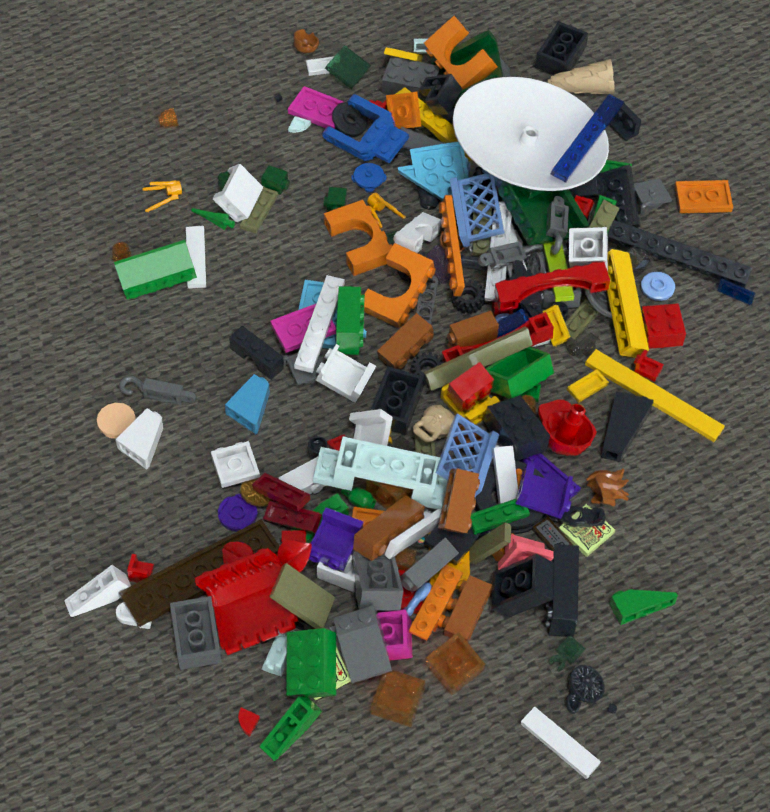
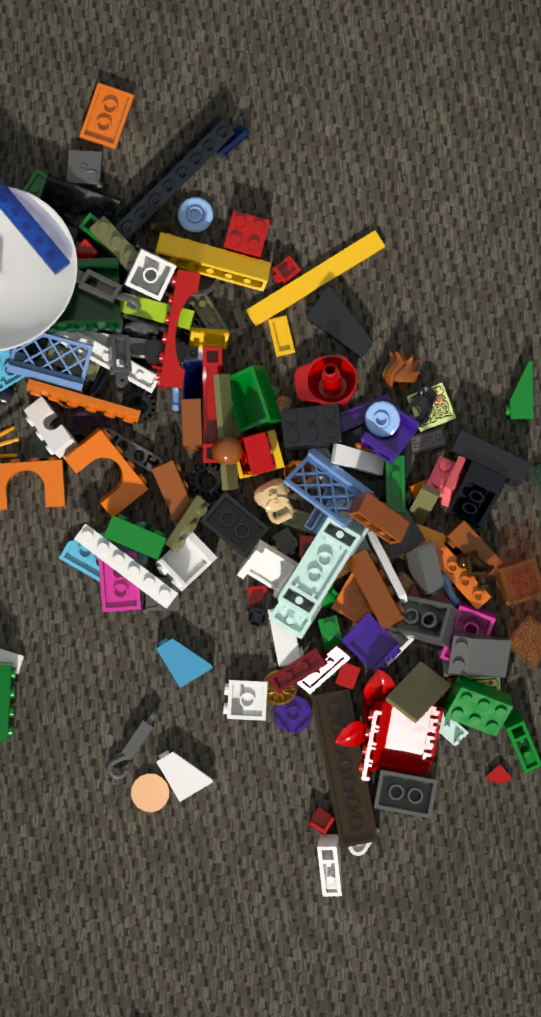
camera: 75 degrees left, 30 degrees up
(266, 358) = (128, 636): black arch -> none
(380, 355) = (187, 524): none -> olive plate
(452, 605) = (476, 567): none -> dark brown piece
(462, 358) = (227, 450): none -> dark orange hair
(554, 478) = (382, 419): none -> light blue wheel

